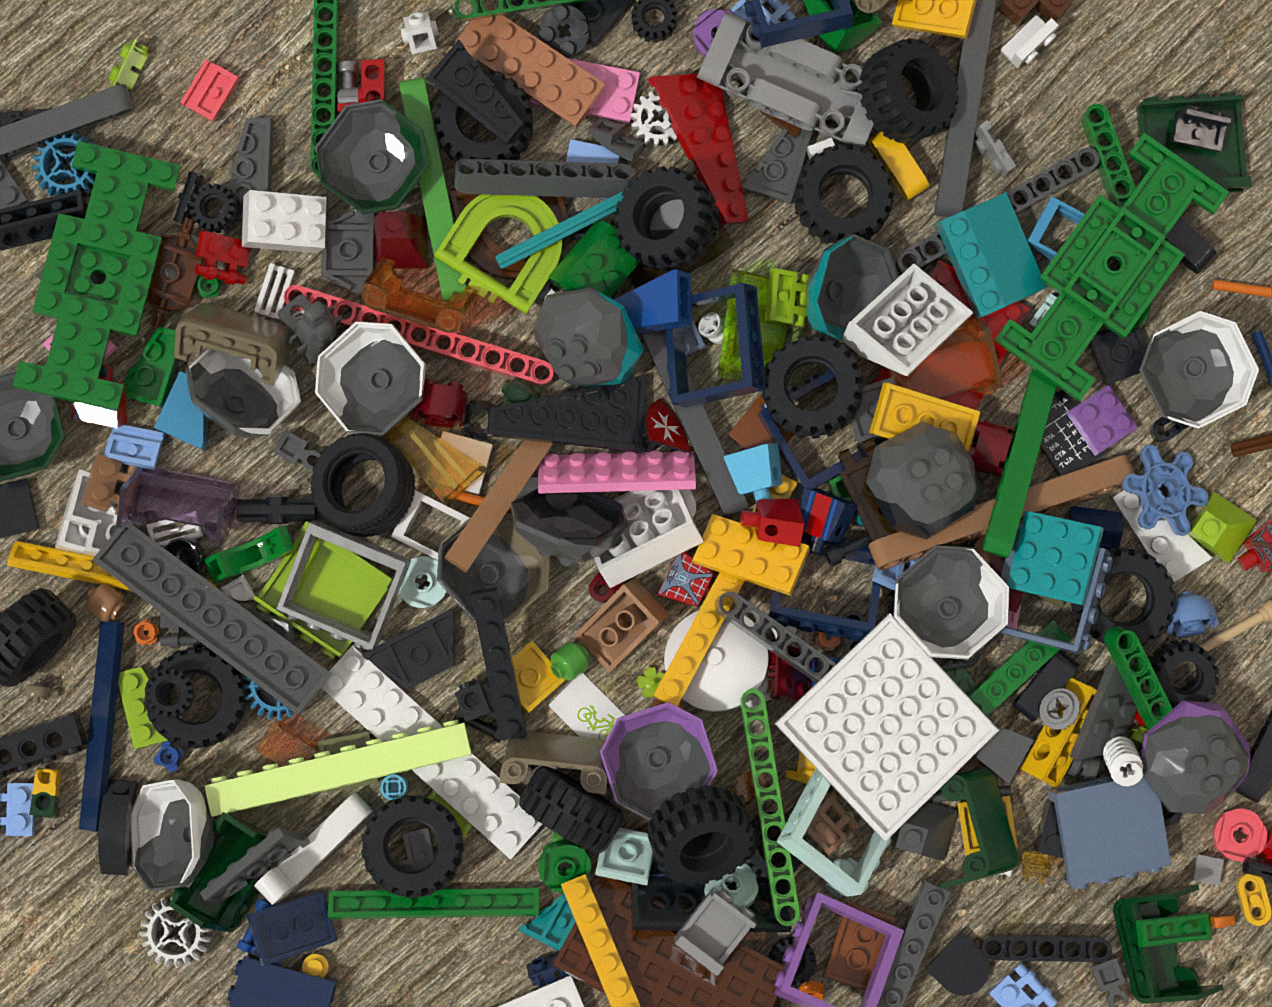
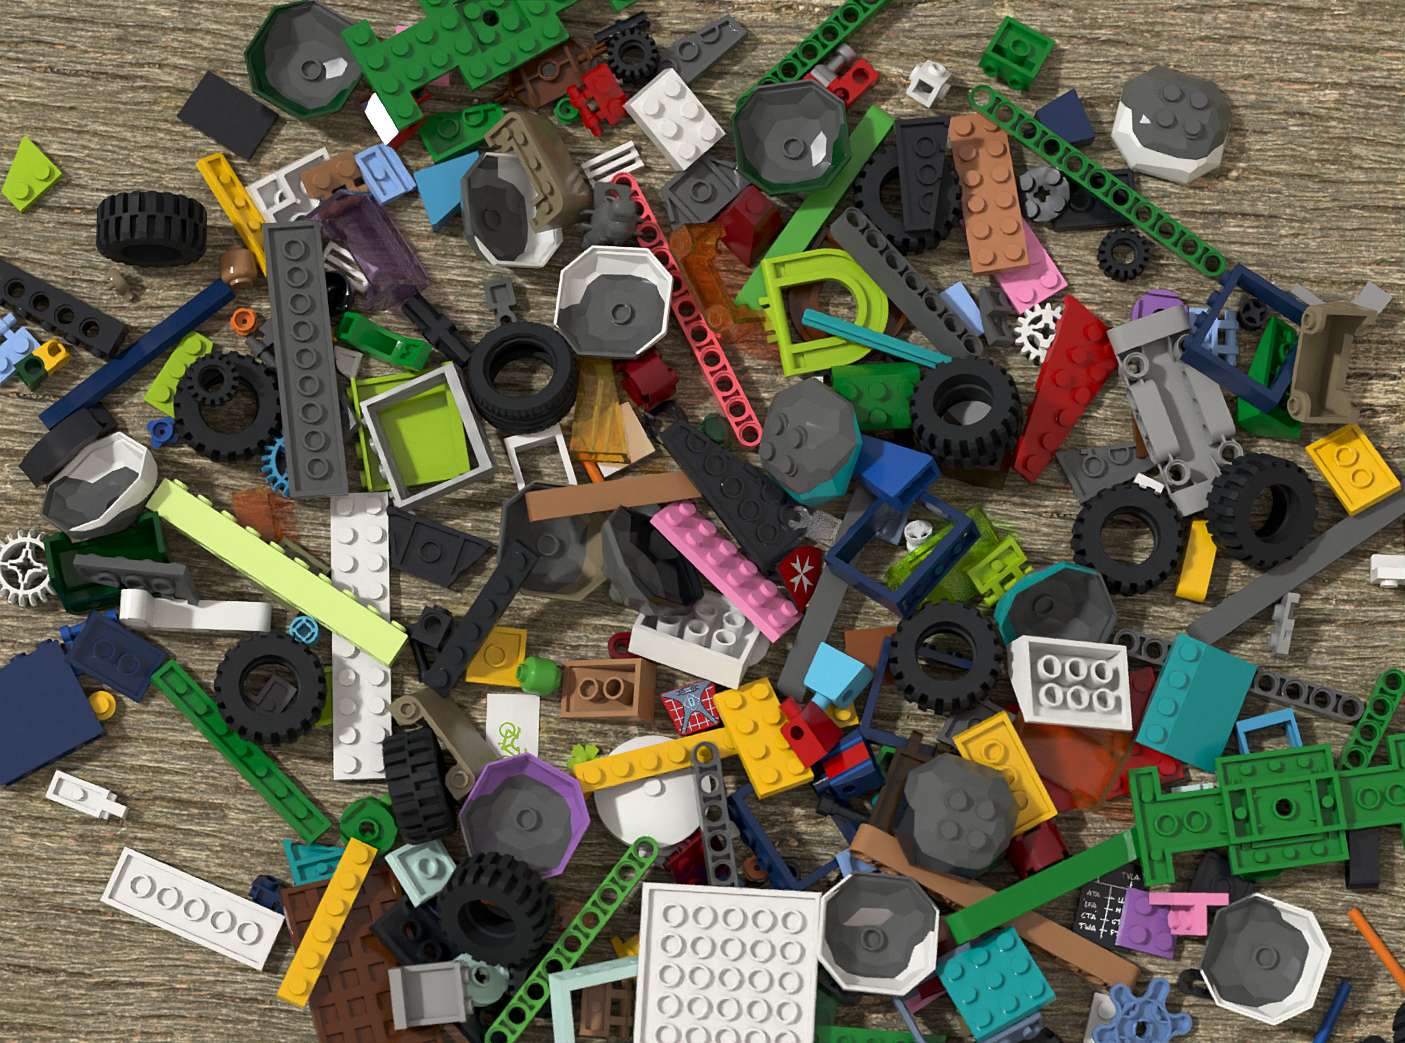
camera: 40 degrees right, 5 degrees down
(430, 595) = (475, 494): light aqua plate -> none
(646, 385) = (820, 526): none -> clear plate
(1109, 520) = (1068, 1007): dark blue panel -> none
(1120, 387) = (1188, 910): none -> bright pink bracket

